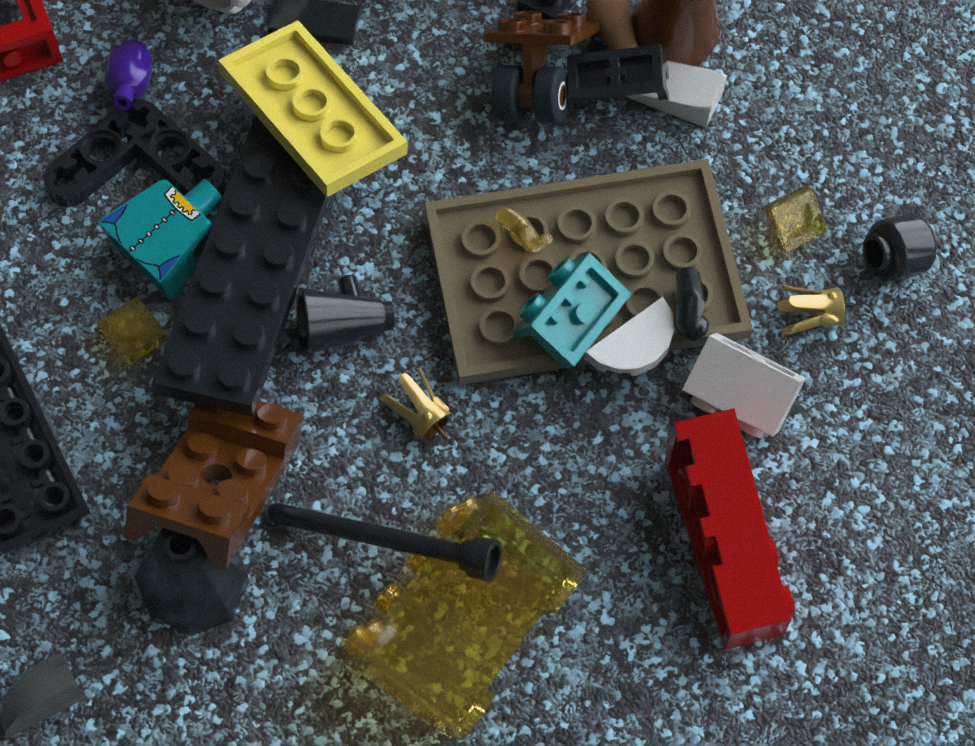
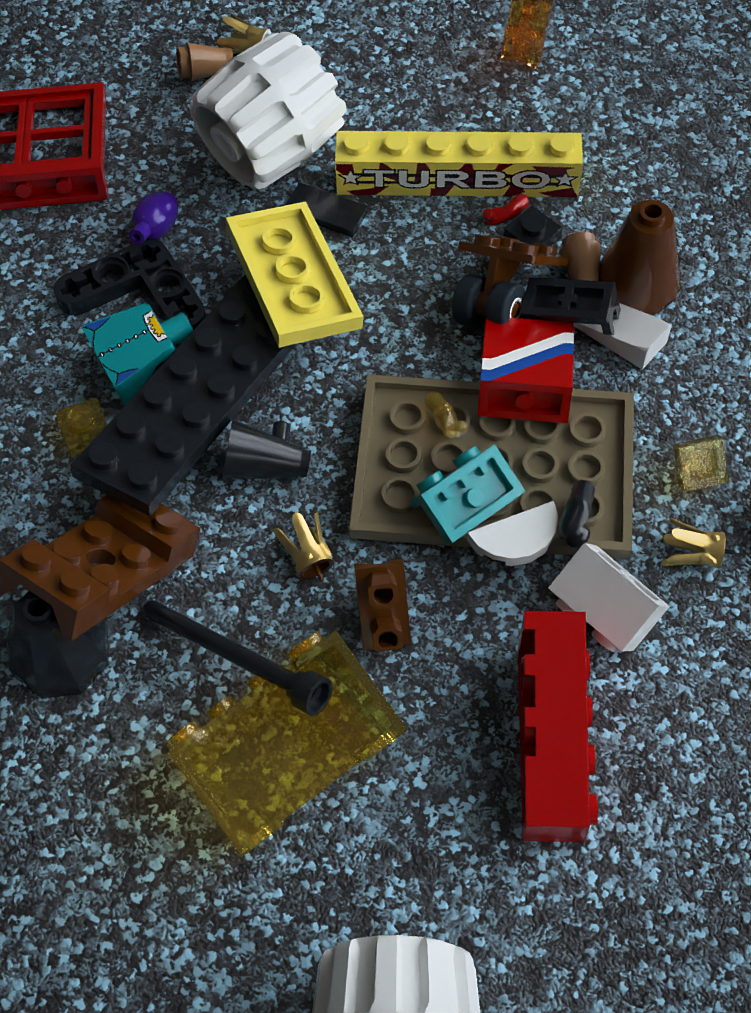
camera: 20 degrees right, 5 degrees down
(521, 450) = (383, 605): none -> reddish brown hips
(594, 159) = (527, 370): none -> red panel

